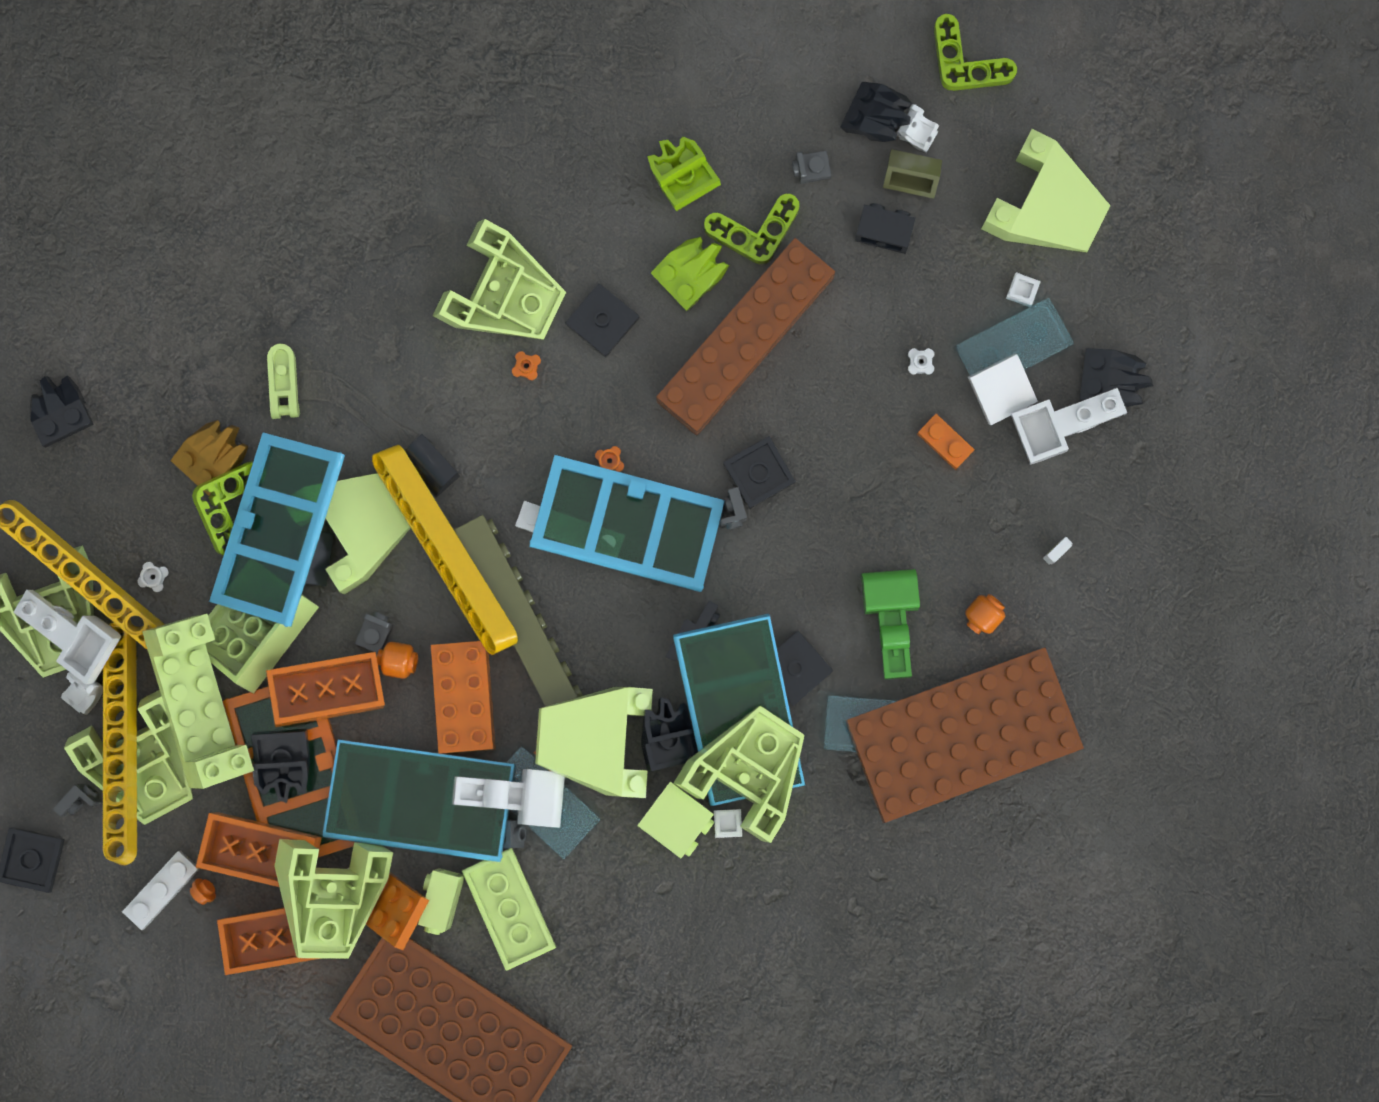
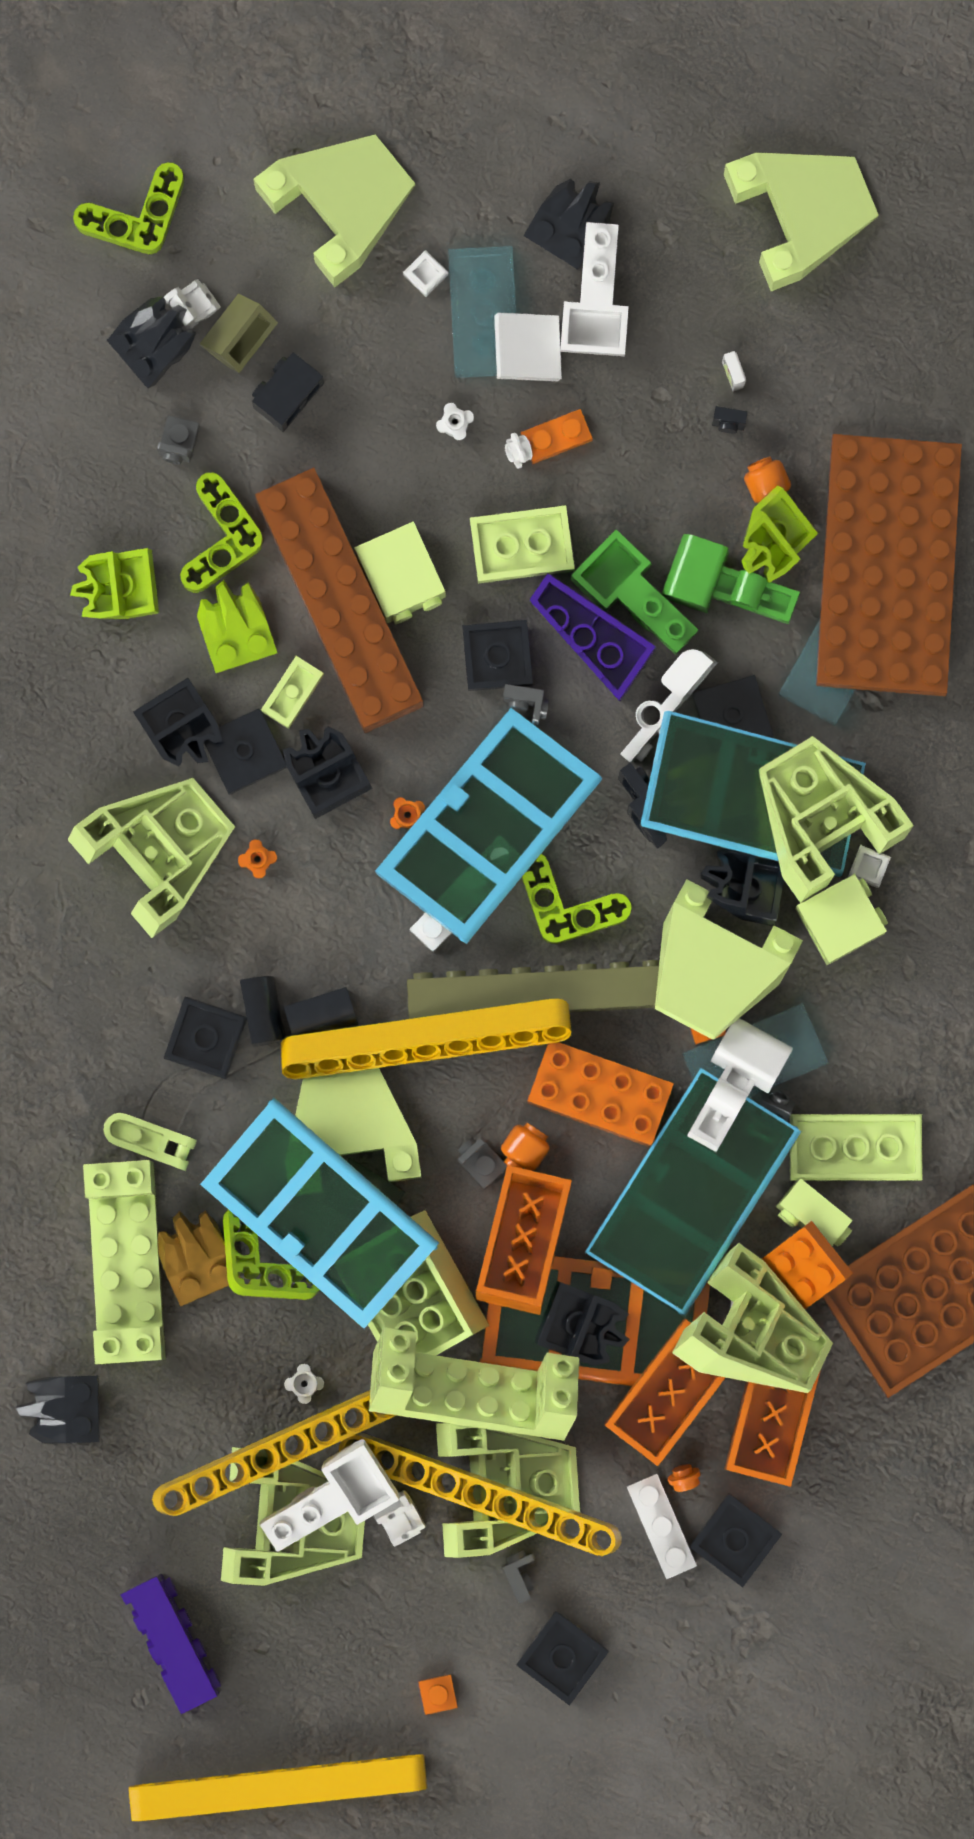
camera: 65 degrees left, 0 degrees up
(172, 950) = (735, 1540): none -> black plate
(182, 407) = (125, 1262): none -> yellowish green plate
(376, 388) = (205, 1038): none -> black plate
(414, 420) = (262, 1010): none -> black brick
(587, 603) = (556, 911): none -> lime beam
(600, 262) = (179, 723): none -> black plate
(613, 385) = (326, 771): none -> black plate
(662, 334) = (292, 692): none -> yellowish green plate
(787, 373) = (400, 573): none -> yellowish green brick
(800, 615) = (682, 680): none -> white plate
(804, 544) = (599, 639): none -> dark purple wedge
(851, 452) = (522, 544): none -> yellowish green plate
(860, 532) = (616, 575): none -> bright green plate
(921, 417) = (518, 449): none -> white plate
(945, 638) = (775, 535): none -> lime plate
(1018, 564) = (729, 419): none -> black plate
(1216, 555) = (816, 200): none -> yellowish green wedge

